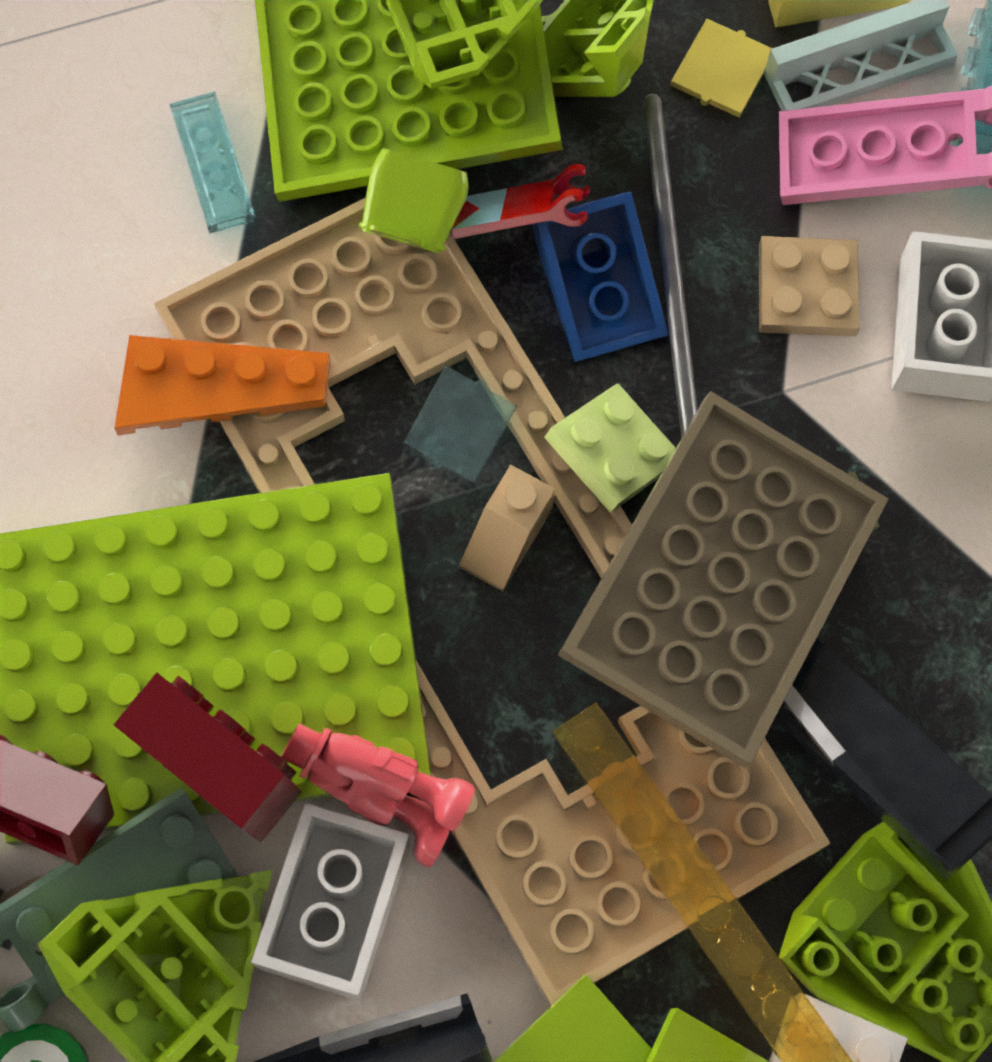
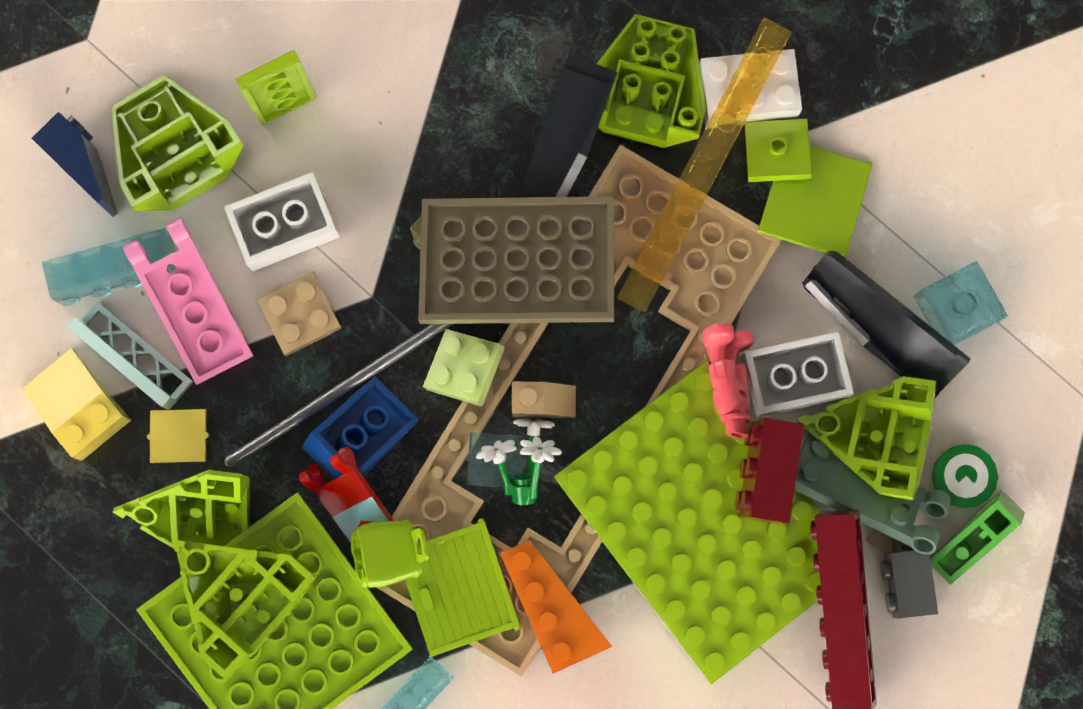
camera: 115 degrees left, 10 degrees up
(314, 285) = (461, 591): none -> lime piece
(410, 445) = (524, 486): none -> plant

